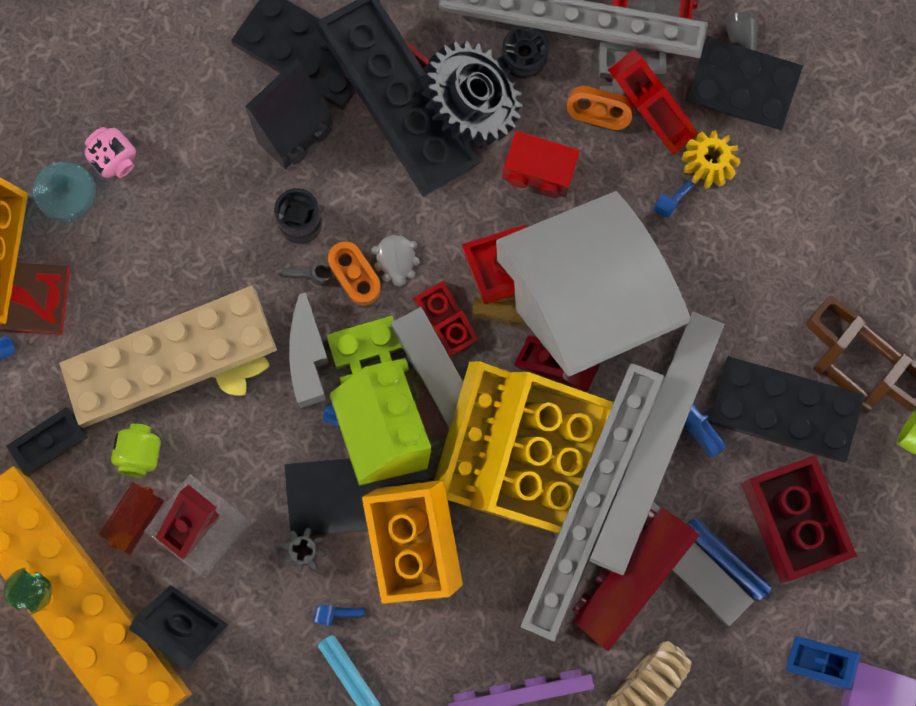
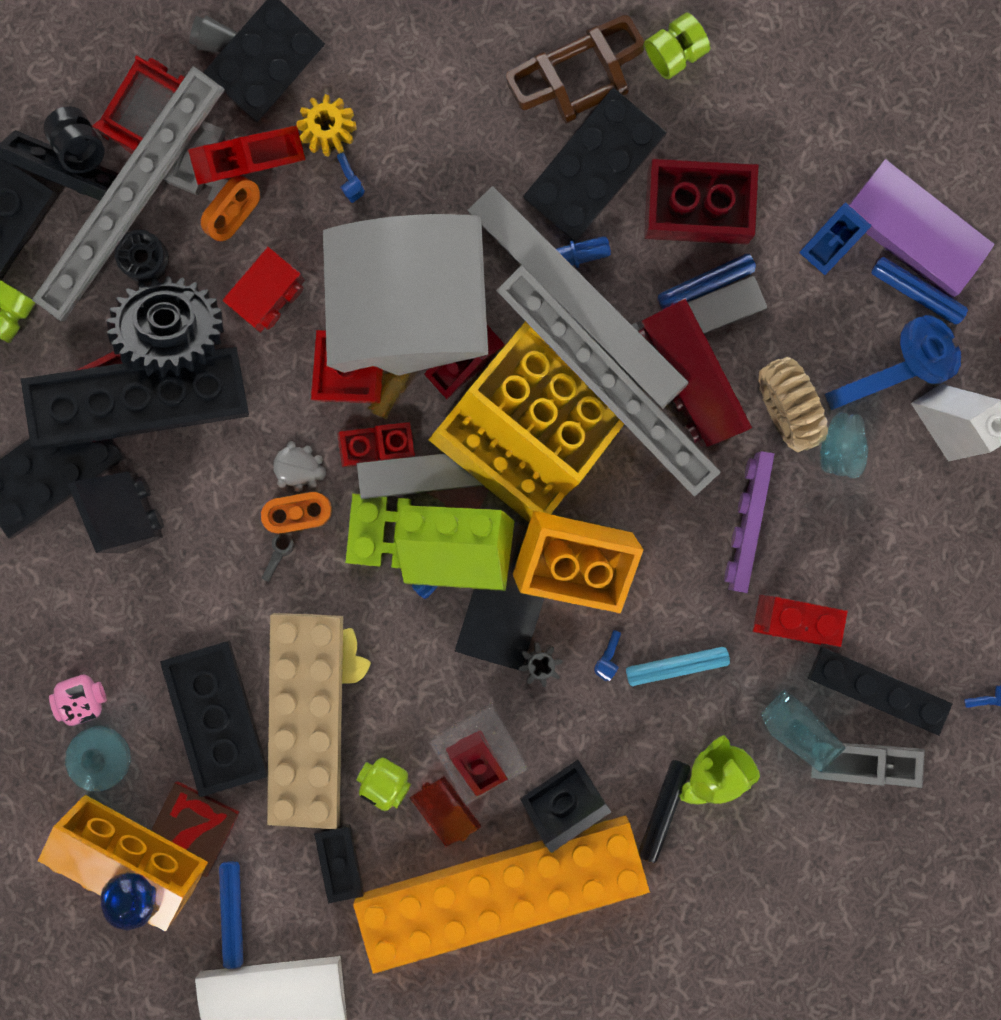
camera: 65 degrees left, 10 degrees up
(27, 591) = (479, 932): clear green piece -> none
(139, 277) = (214, 718): none -> black plate
(298, 215) = (218, 543): black wheel -> none
(305, 355) = (357, 589): light grey slope -> none

